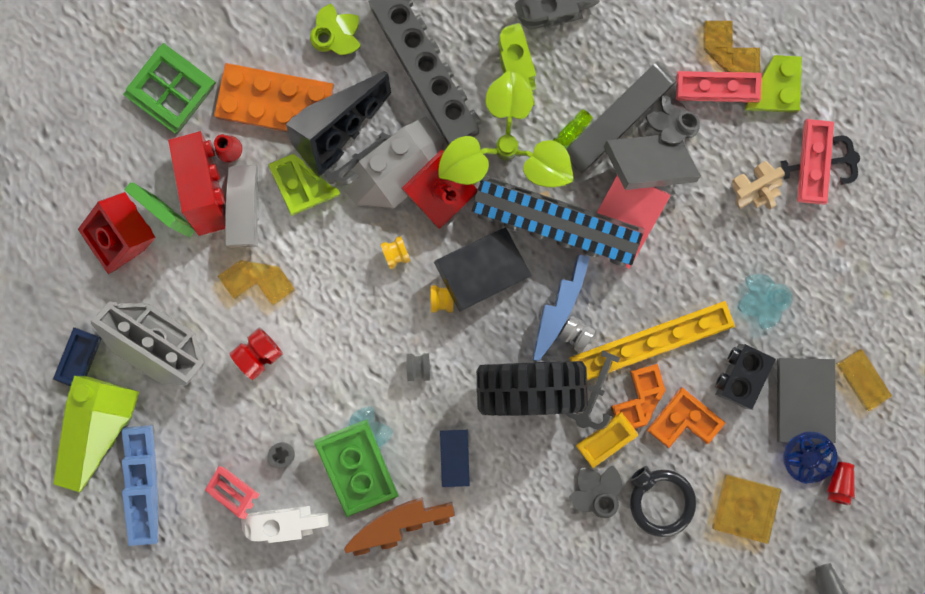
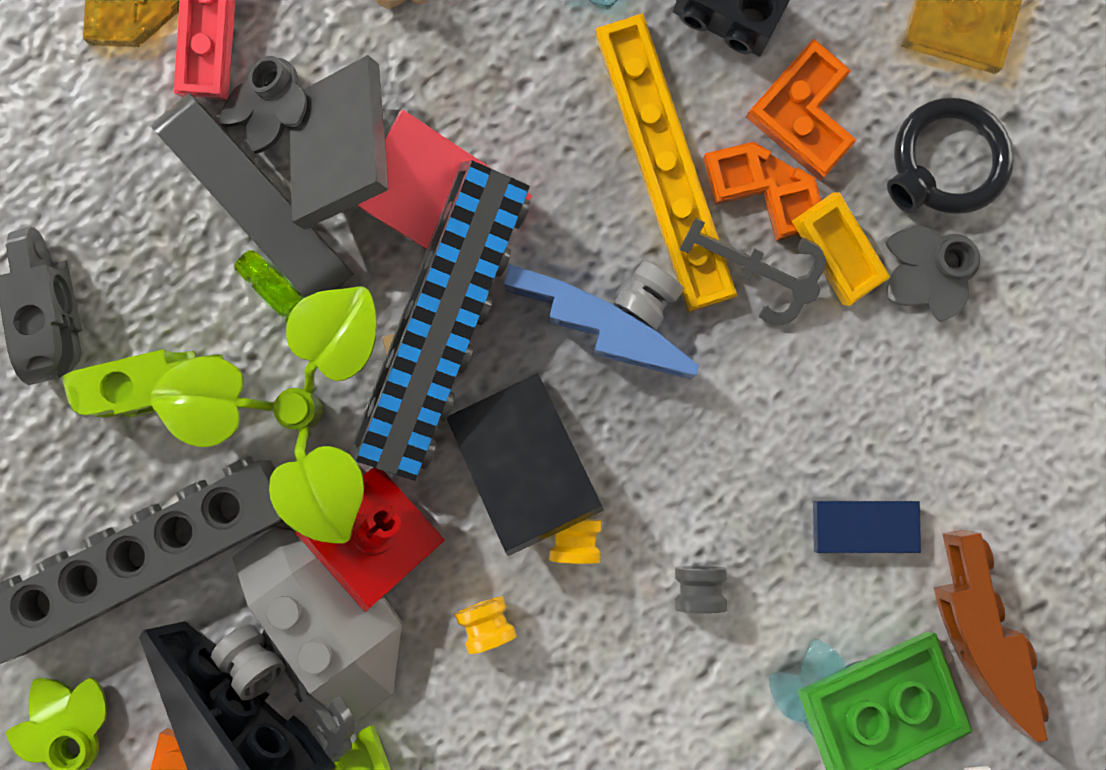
camera: 85 degrees left, 0 degrees up
(372, 128) = (248, 662): none -> light grey wheel
(532, 388) = (760, 380): black tyre -> none

